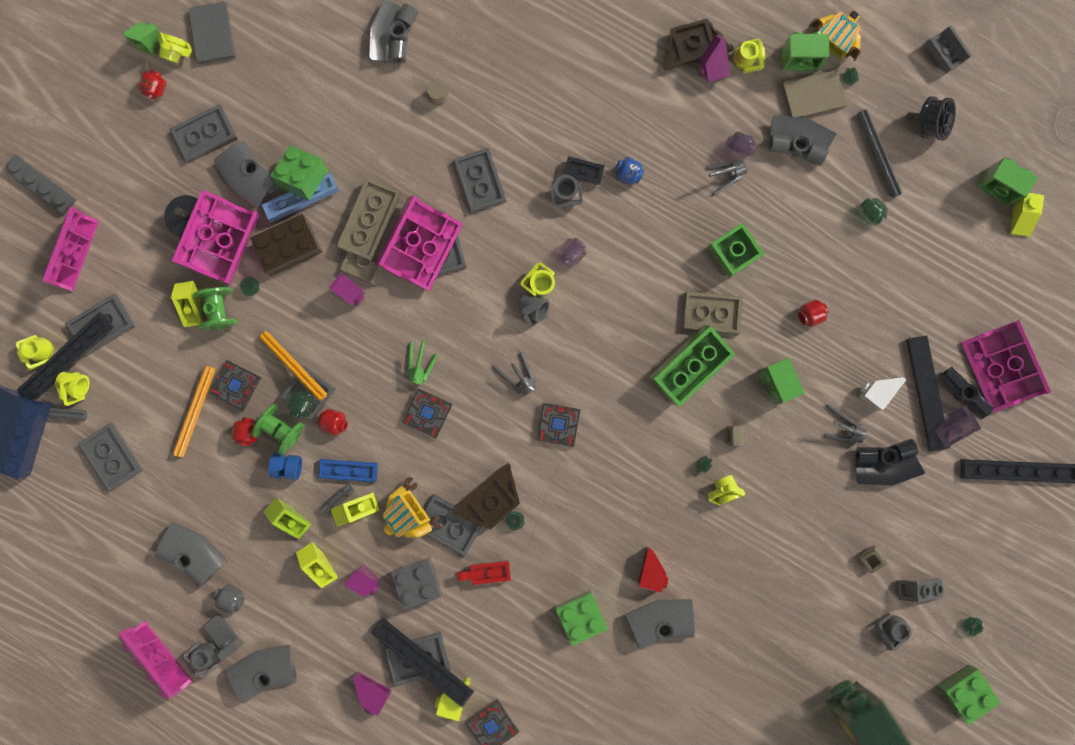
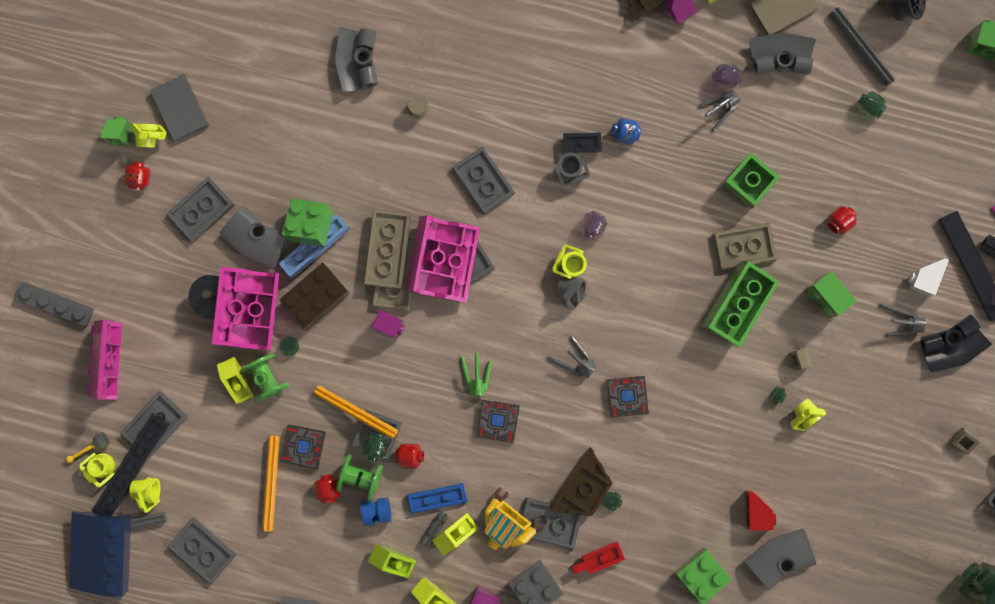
camera: 15 degrees left, 0 degrees up
(43, 325) = (99, 441): none -> hinge

